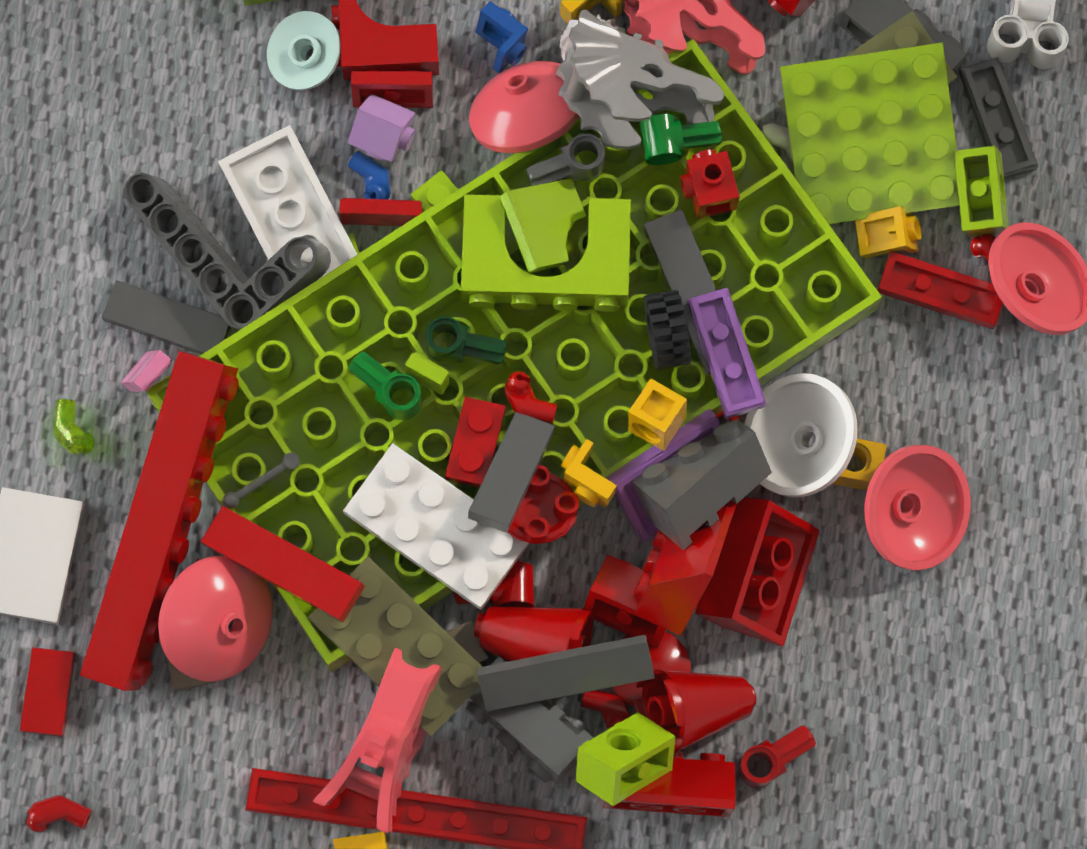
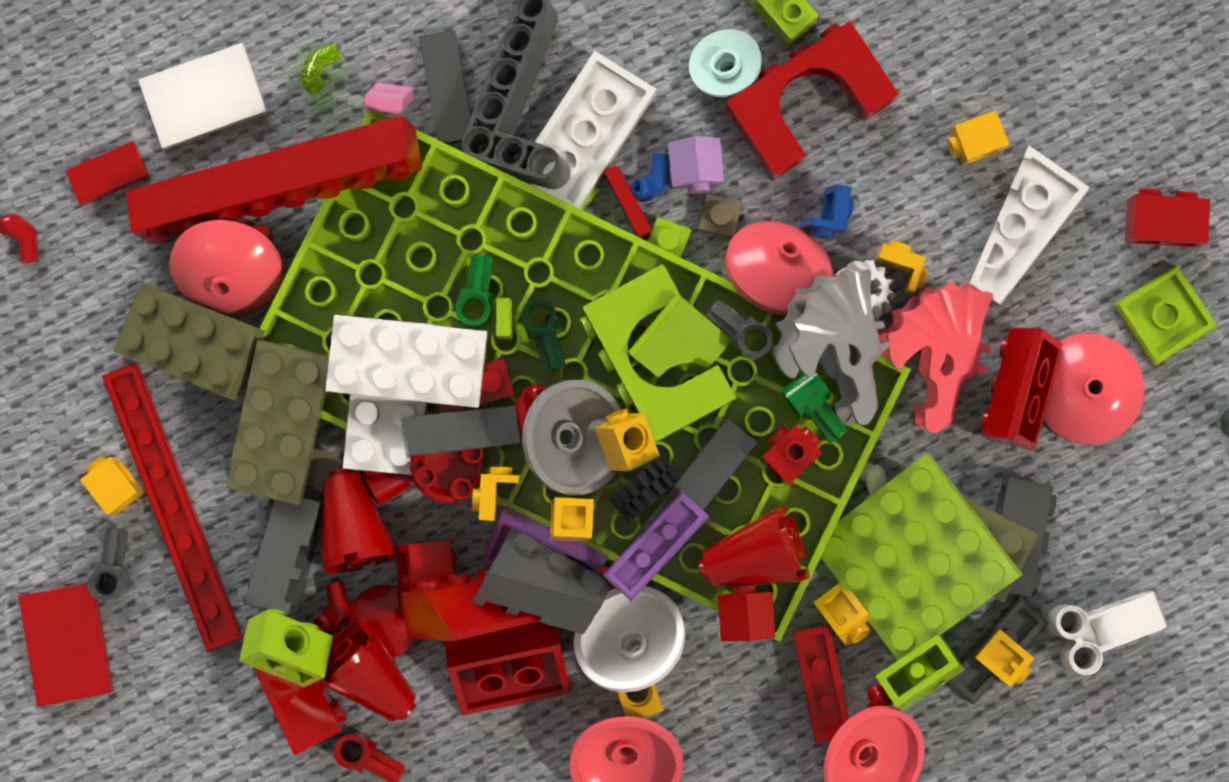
camera: 65 degrees right, 10 degrees up
(265, 697) = (188, 341): none -> olive plate
(282, 564) = (286, 296): red tile -> none
(290, 462) = (376, 252): dark grey hinge -> none
(387, 739) = (198, 456): coral animal -> none
(403, 88) = (740, 161): red plate -> none
(414, 484) = (406, 361): none -> white plate
(443, 138) = (720, 215): none -> dark tan plate
(565, 673) = (326, 564): dark grey tile -> none
(580, 366) = (578, 462): none -> light grey dish
(611, 322) = (639, 446): none -> yellow brick
(788, 263) = (757, 554): none -> red cone
(838, 306) = (746, 614): none -> red brick
(1011, 111) = (1005, 658): none -> yellow bracket

